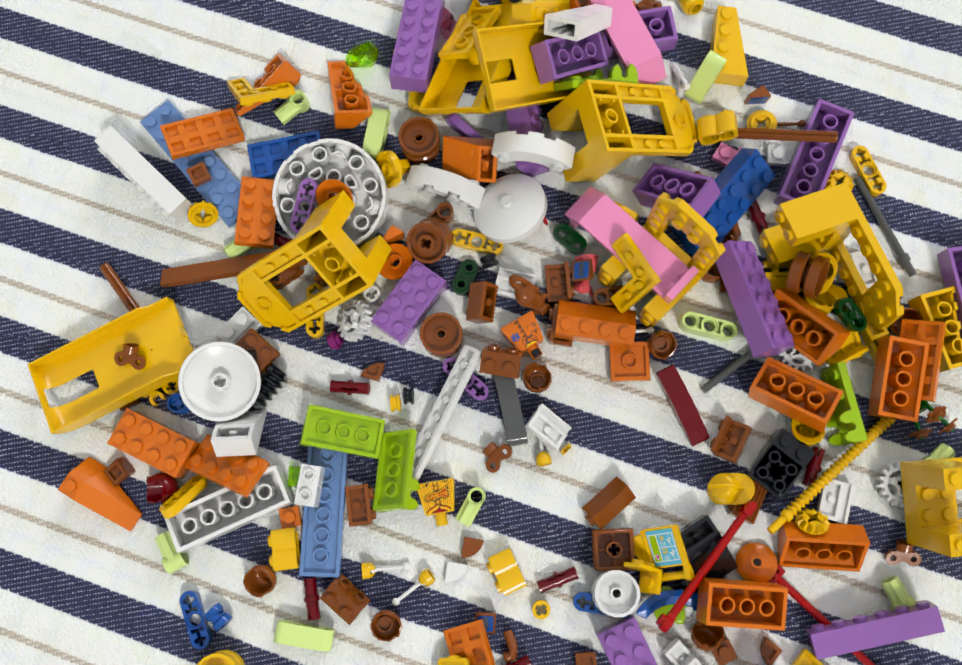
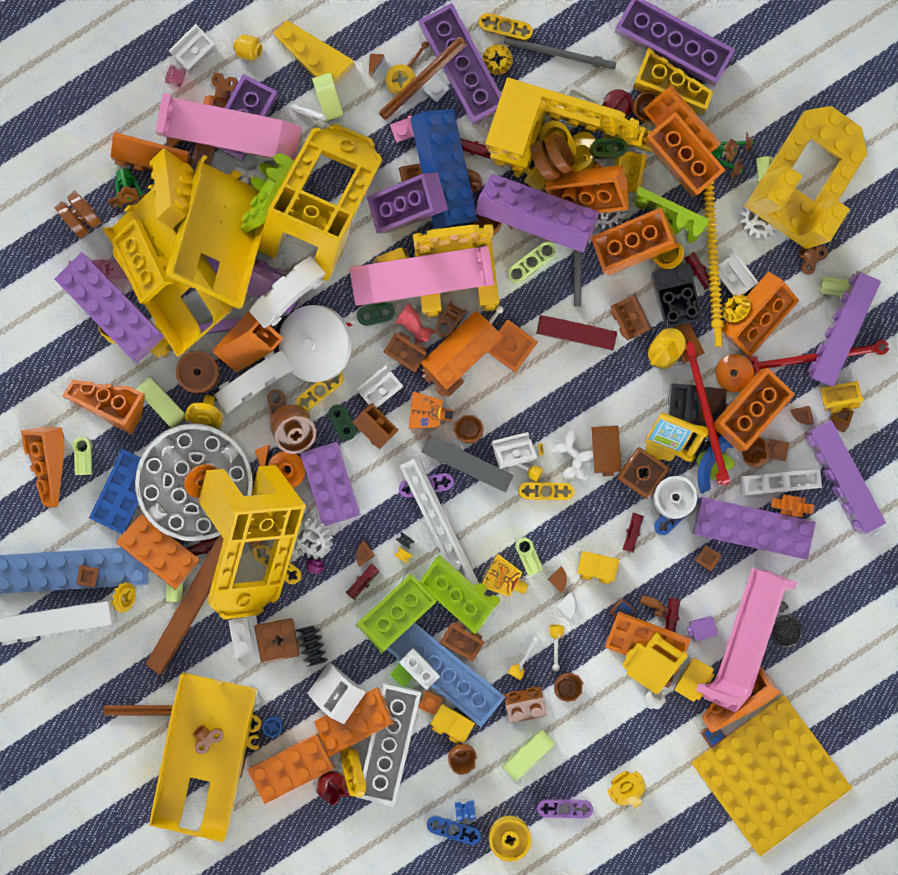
camera: 60 degrees left, 10 degrees up
(94, 490) = (295, 838): orange wedge -> none
(119, 470) = (291, 811): dark orange slope -> none
(171, 559) = (392, 815): yellowish green piece -> none
(202, 133) = (51, 548): orange plate -> none
(219, 381) = (285, 679): white dish -> none
(248, 96) = (53, 485): yellow plate -> none
(302, 191) = (202, 518): medium lavender beam -> none
(311, 598) = (505, 730): dark red pin -> none
(362, 55) = (81, 362): clear neon green hat -> none
(437, 324) = (375, 489): dark orange wheel -> none
(489, 261) = (344, 393): black bush -> none
(496, 455) = (504, 507): dark orange piece -> none
(501, 361) = (435, 447): dark orange bracket -> none
(528, 295) = (401, 385): dark orange animal -> none
(541, 615) = (639, 559): yellow bush -> none
(543, 480) = (551, 485): none -> yellow beam
(565, 58) = (229, 199): medium lavender brick -> none
(578, 22) = (211, 173): white slope -> none
(582, 270) = (412, 327): slope -> none
(583, 485) = (578, 457): none -> white piece
(643, 275) = (459, 289): yellow plate -> none
(650, 577) = (683, 462): yellow bracket -> none
(662, 344) = (518, 310): dark orange hair -> none
(717, 127) = (377, 120): yellow brick -> none

